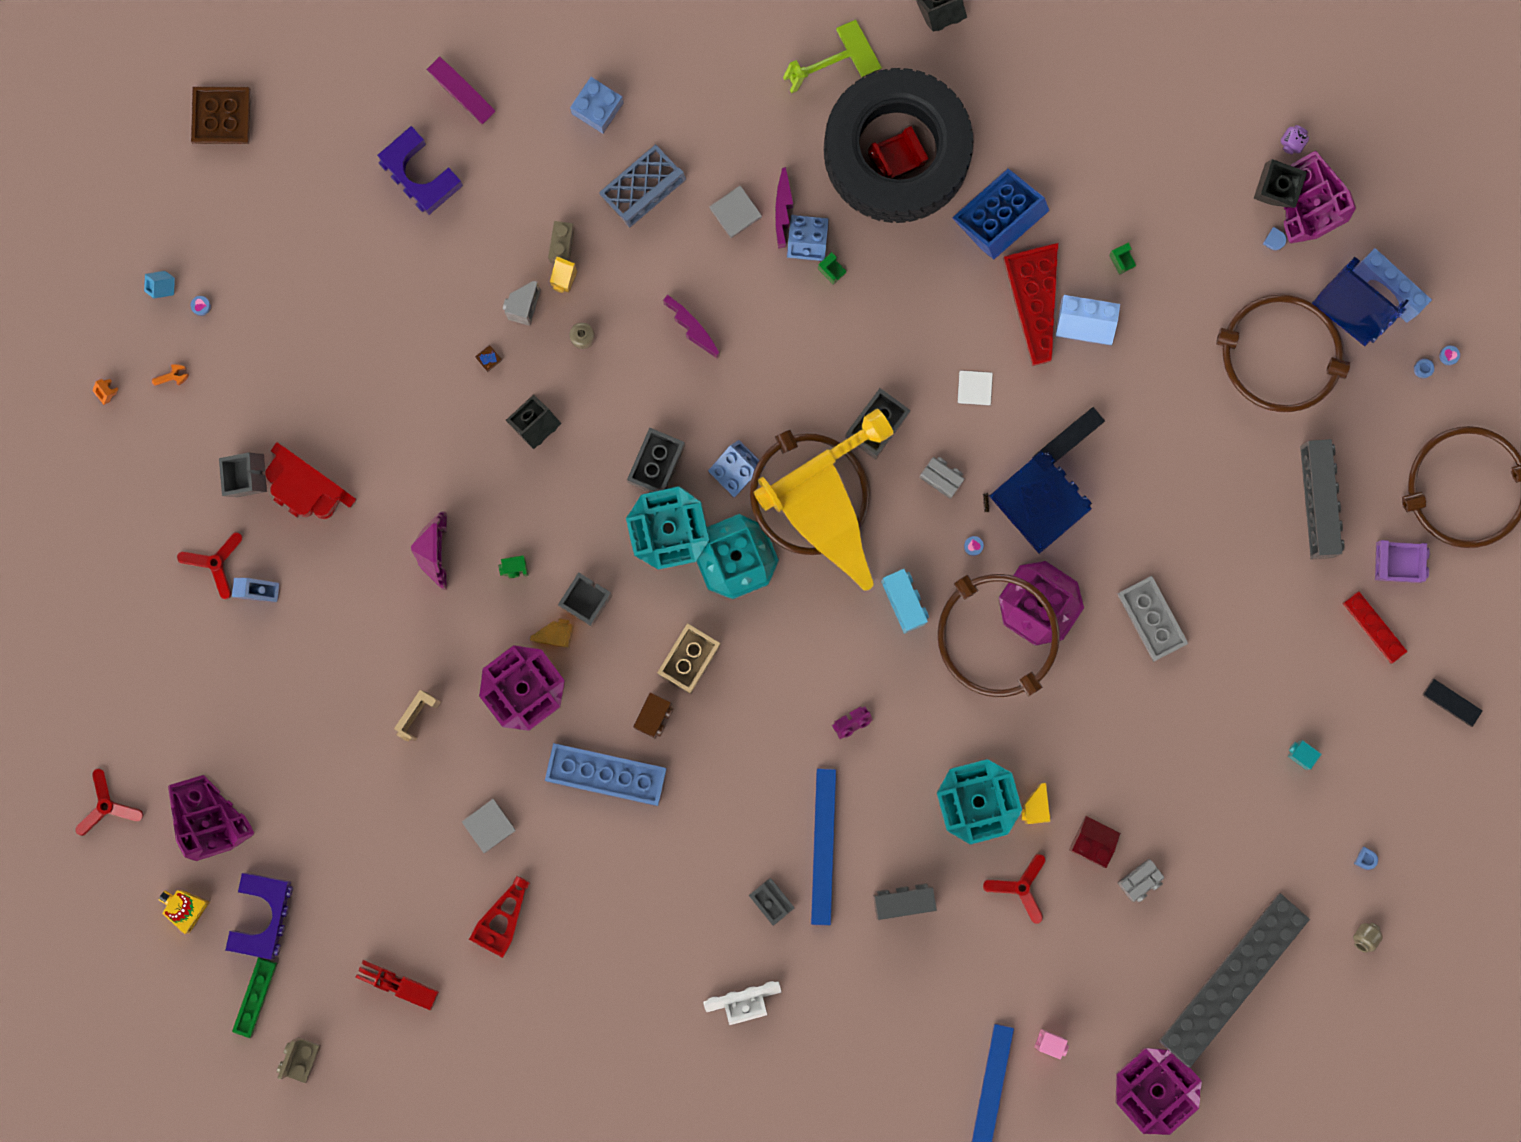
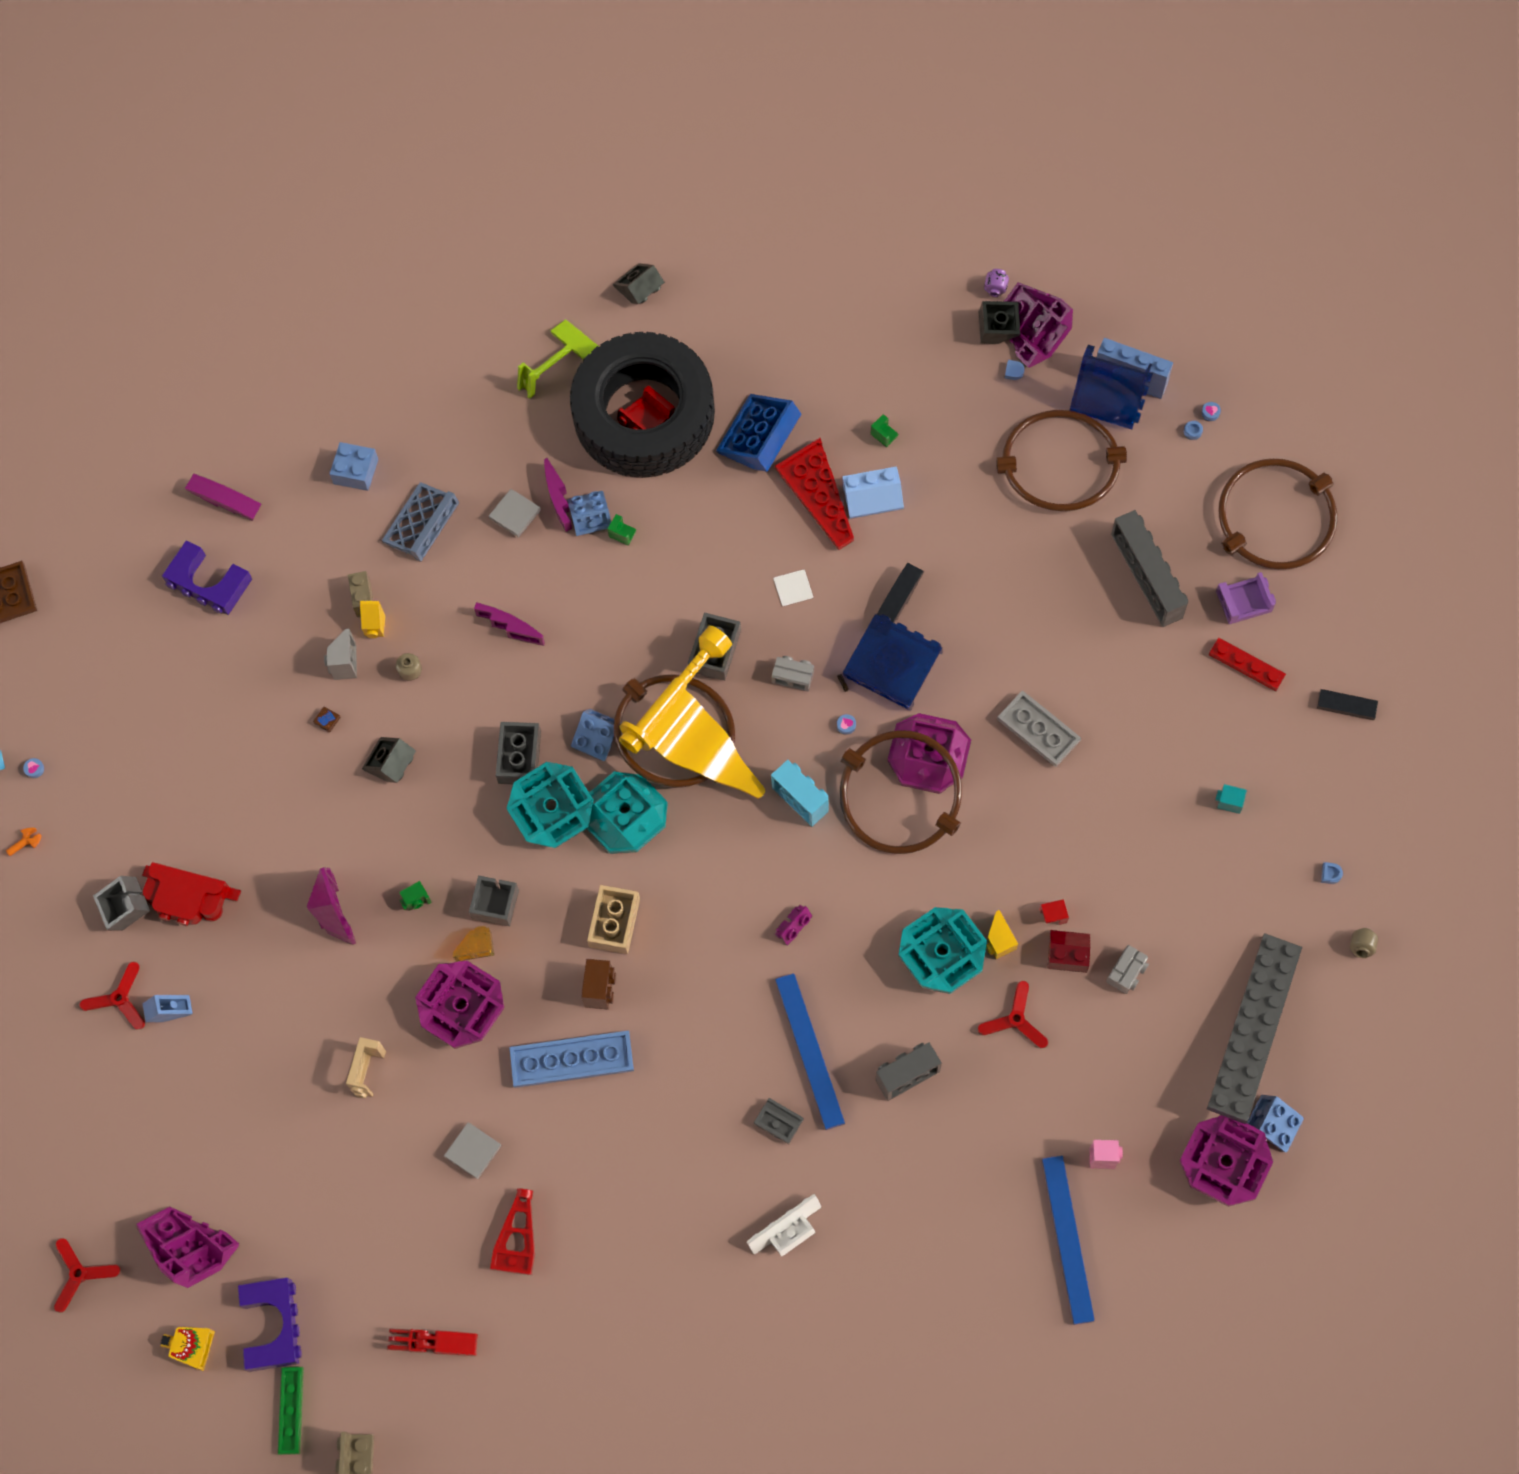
camera: 15 degrees left, 15 degrees down
(1095, 803) = (1055, 912): none -> red panel
(1216, 1069) = (1276, 1120): none -> medium blue bracket

